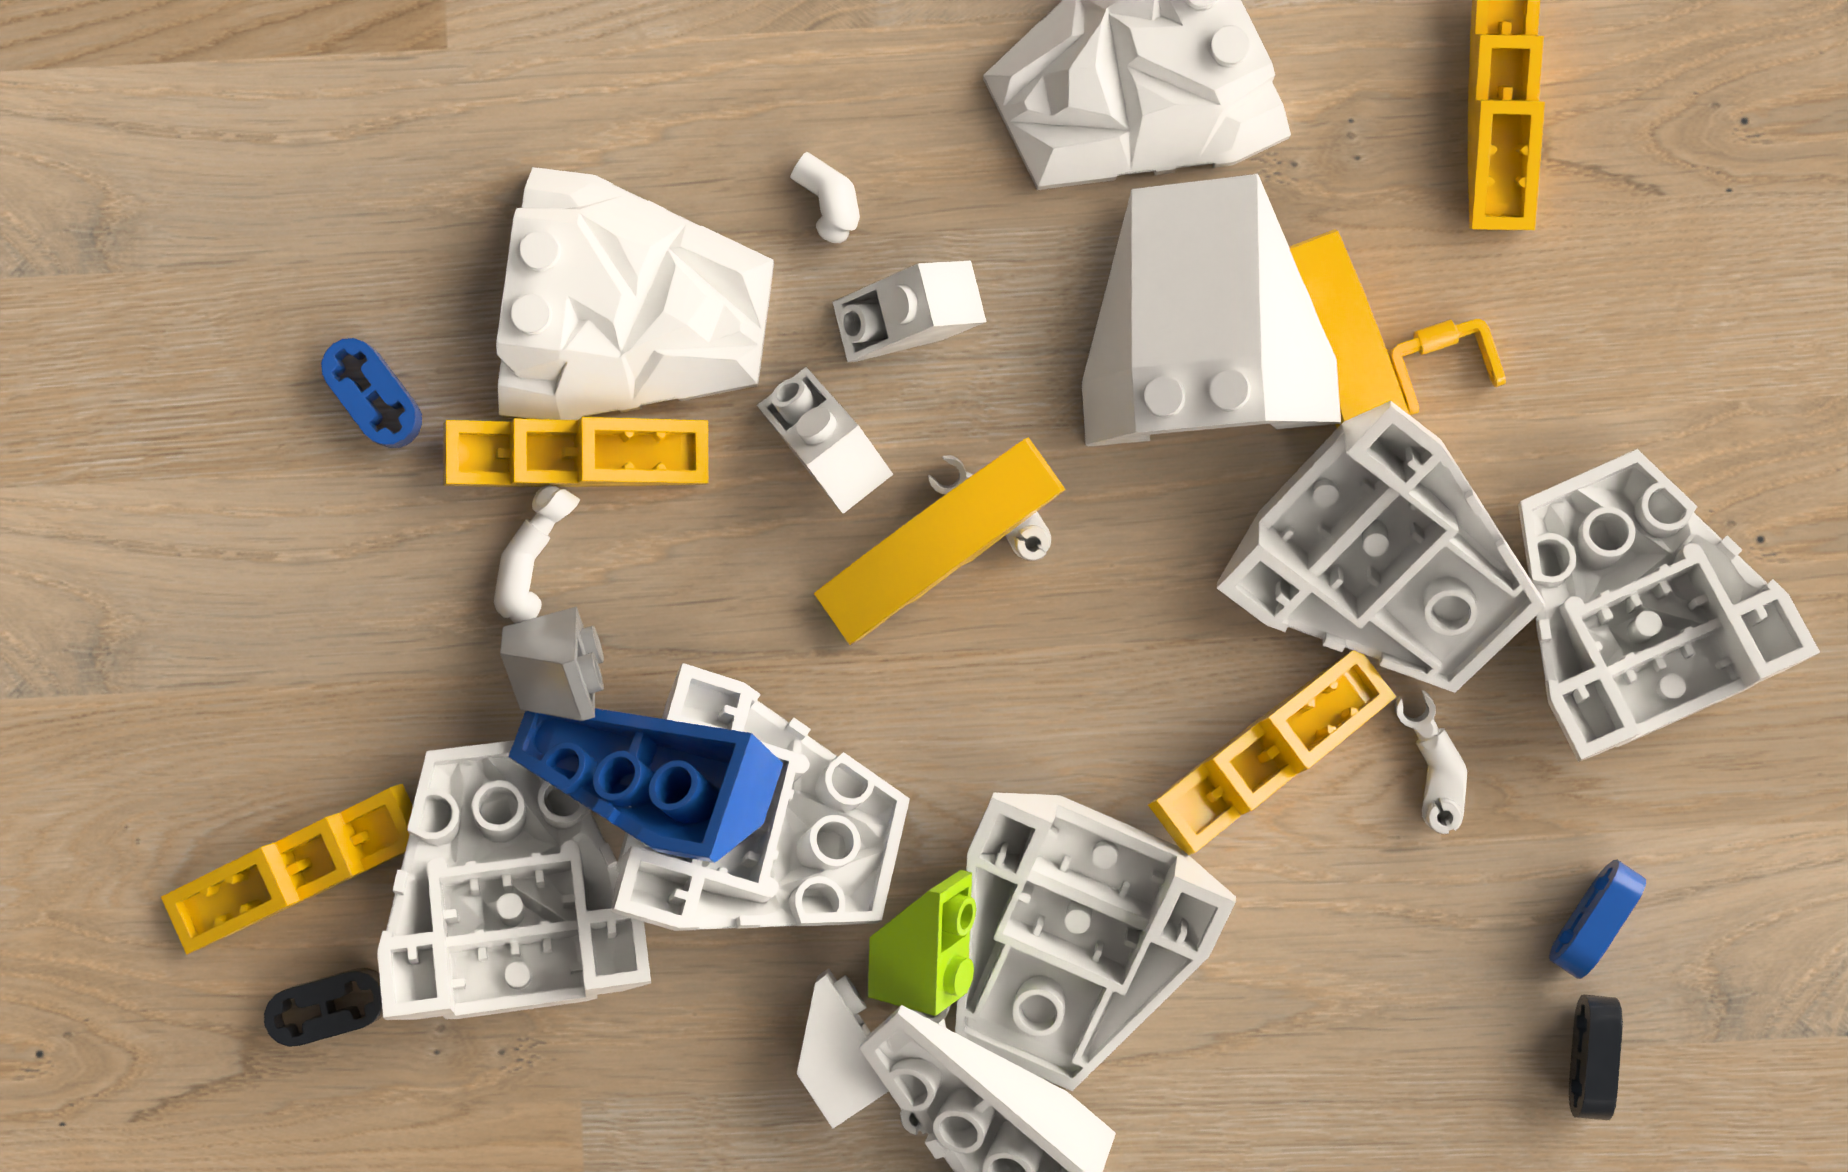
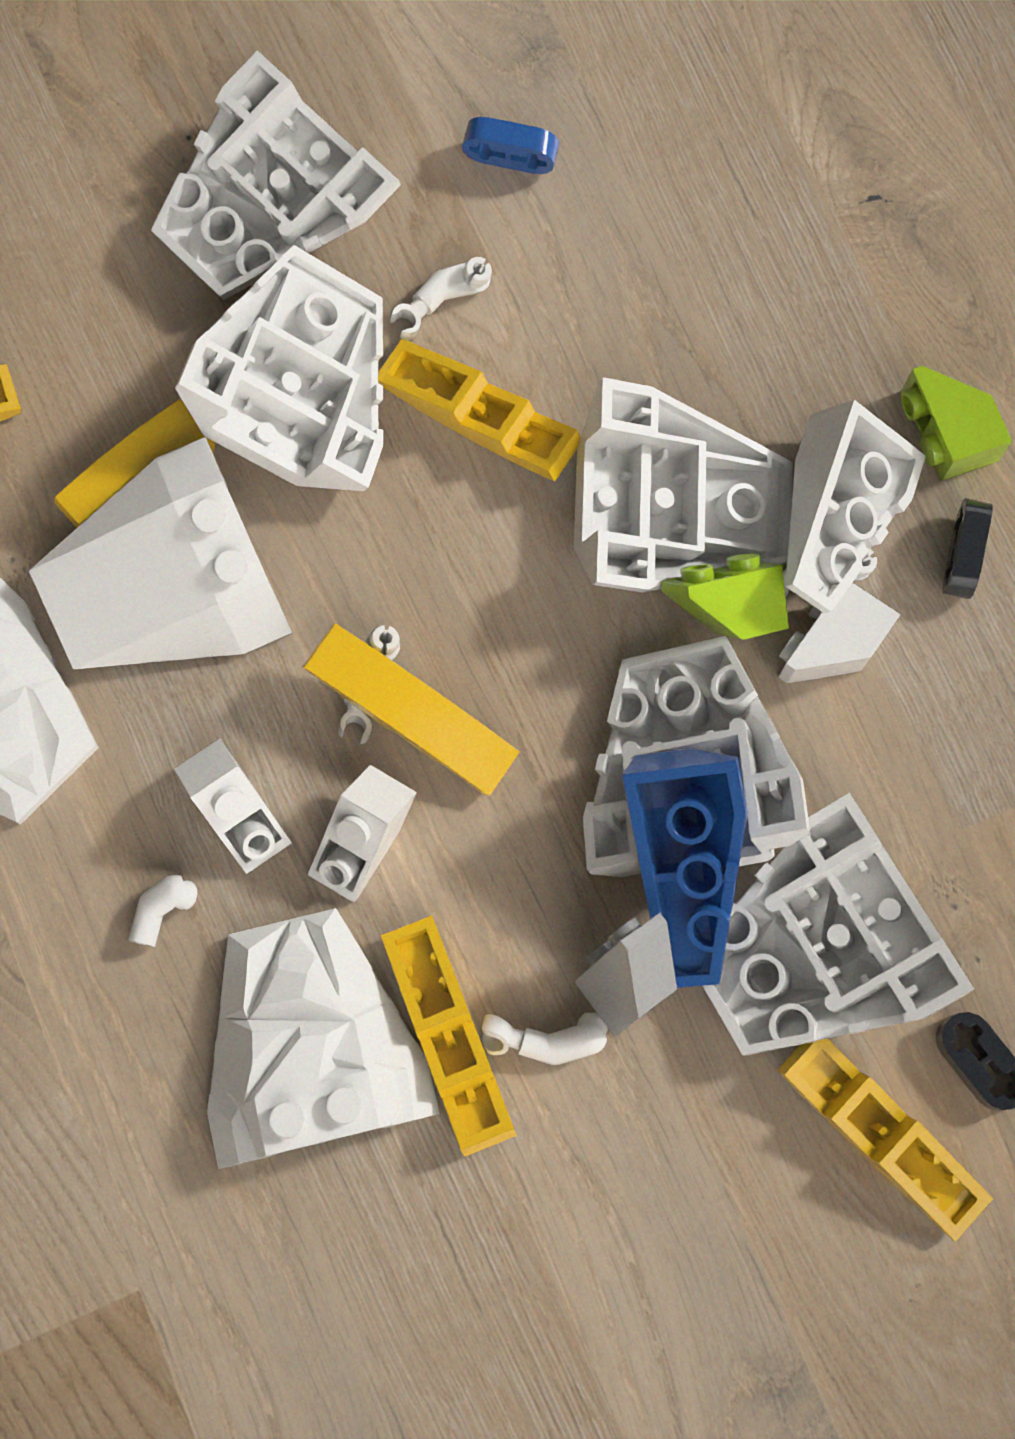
camera: 110 degrees left, 10 degrees down
(360, 402) = (449, 1224): blue beam -> none
(1439, 337) = (109, 399): yellow piece -> none
(1595, 1057) = (610, 113): black beam -> none

